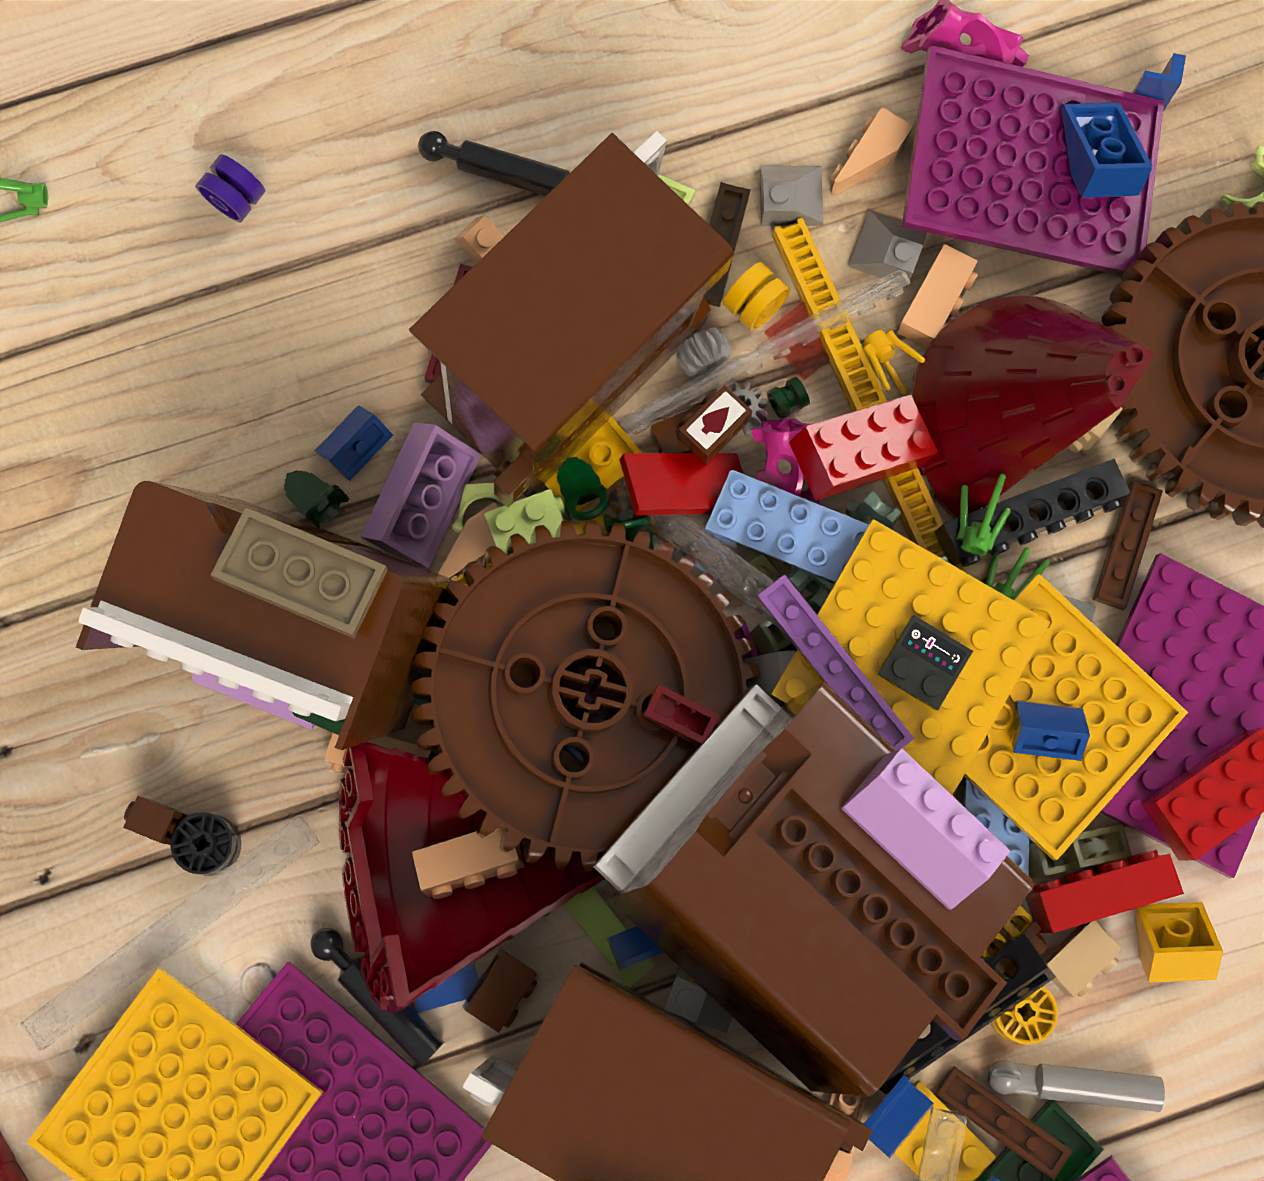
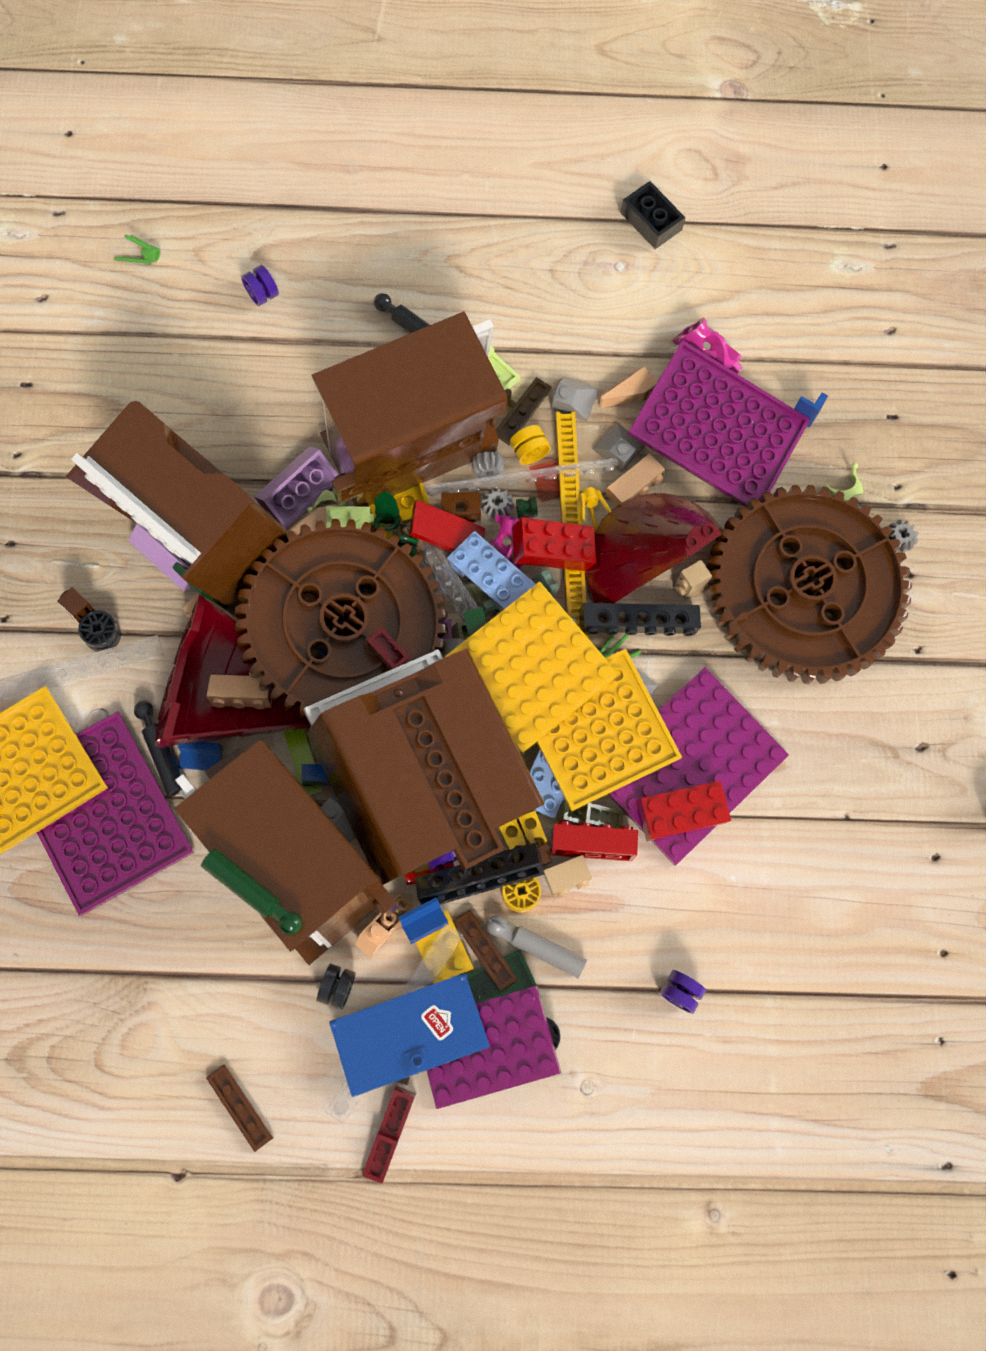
camera: 15 degrees right, 5 degrees down
(299, 572) = (197, 474): dark tan plate -> none
(314, 497) = (237, 467): dark green piece -> none
(354, 442) = (272, 446): blue panel -> none
(714, 423) = (475, 504): brick -> none
(831, 660) = (483, 649): medium lavender plate -> none
(925, 662) = (536, 669): pearl dark grey plate -> none
(925, 828) = (489, 745): lavender slope -> none
(978, 537) = (598, 616): bright green plant -> none
(1050, 731) = (595, 736): blue panel -> none
(1104, 151) = (760, 432): blue slope -> none
(1127, 545) = (690, 658): reddish brown tile -> none
(1177, 942) = (627, 888): yellow slope -> none

